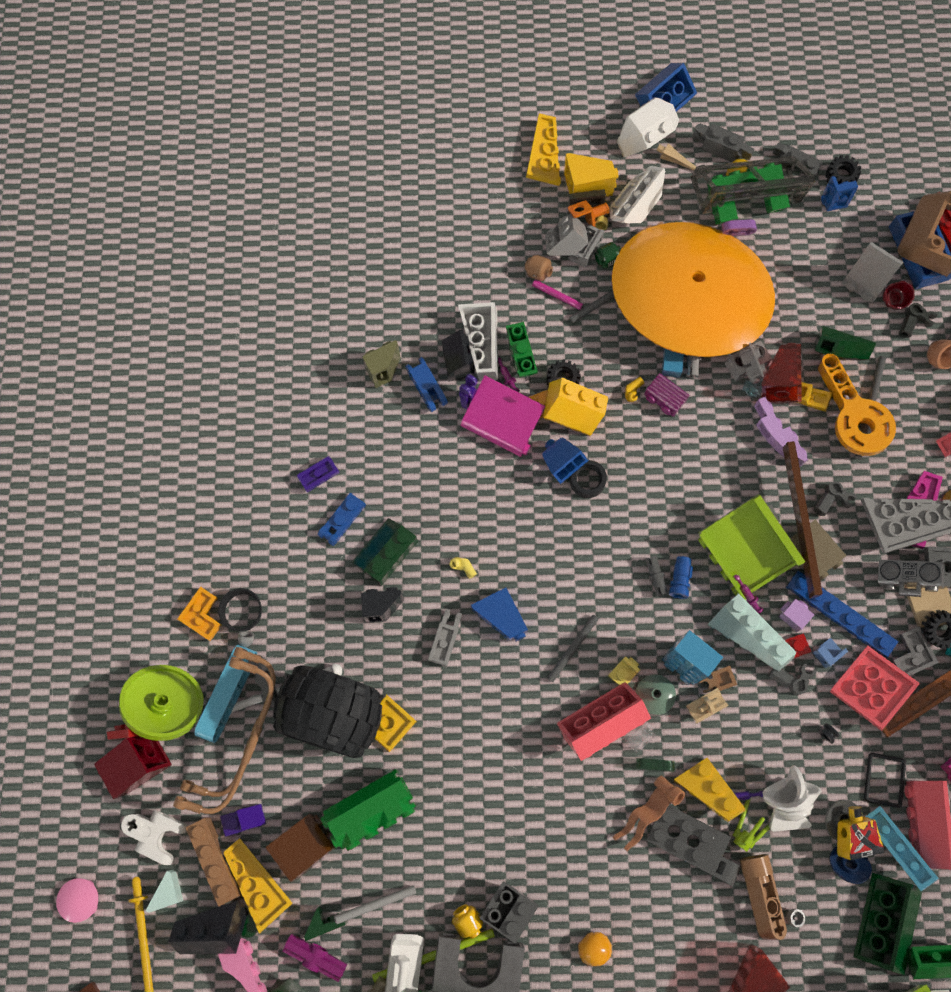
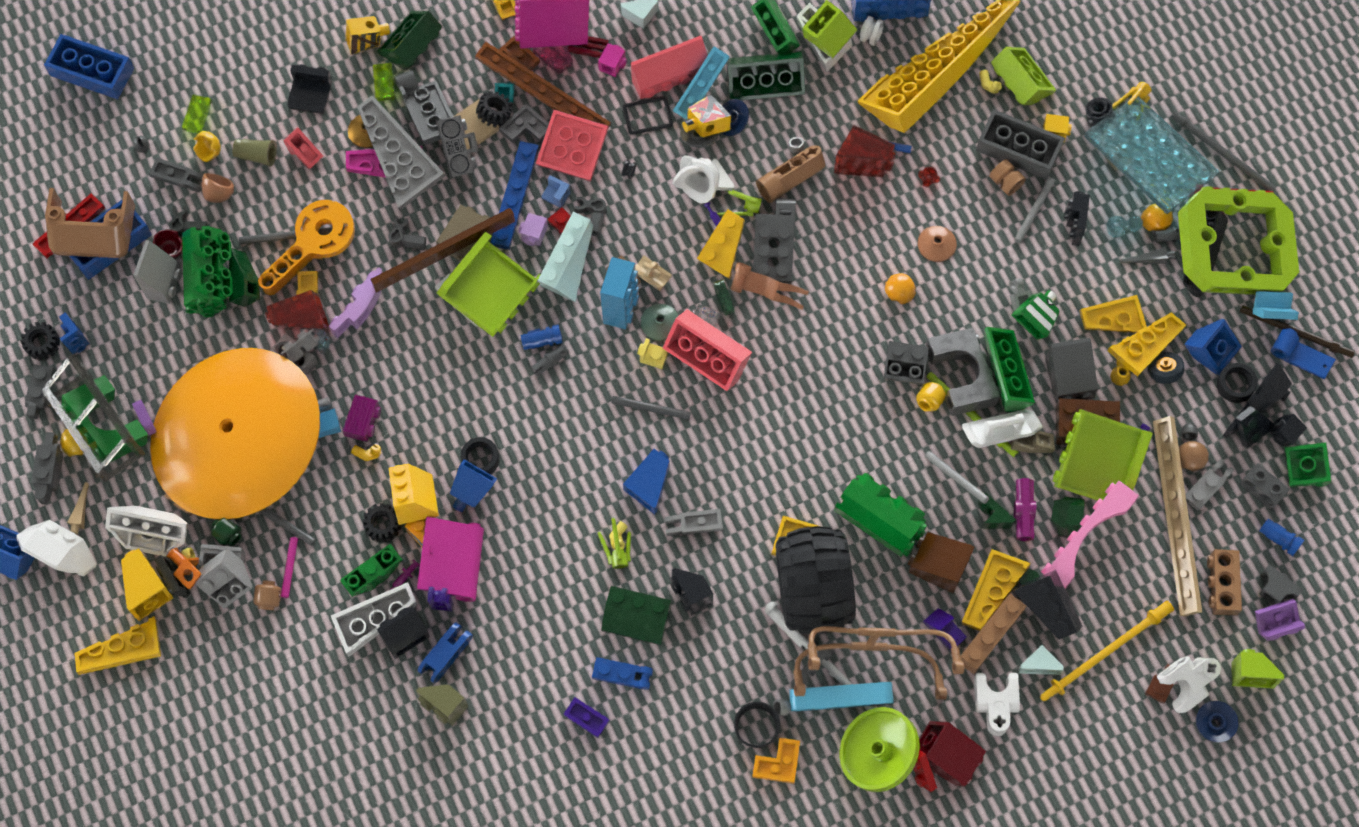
camera: 115 degrees left, 5 degrees down
(77, 900) = (1087, 743): bright pink dish -> none
(443, 557) = (618, 558): none -> lime plant
(752, 600) = (535, 271): magenta piece -> none
(859, 314) = (204, 270): none -> green brick

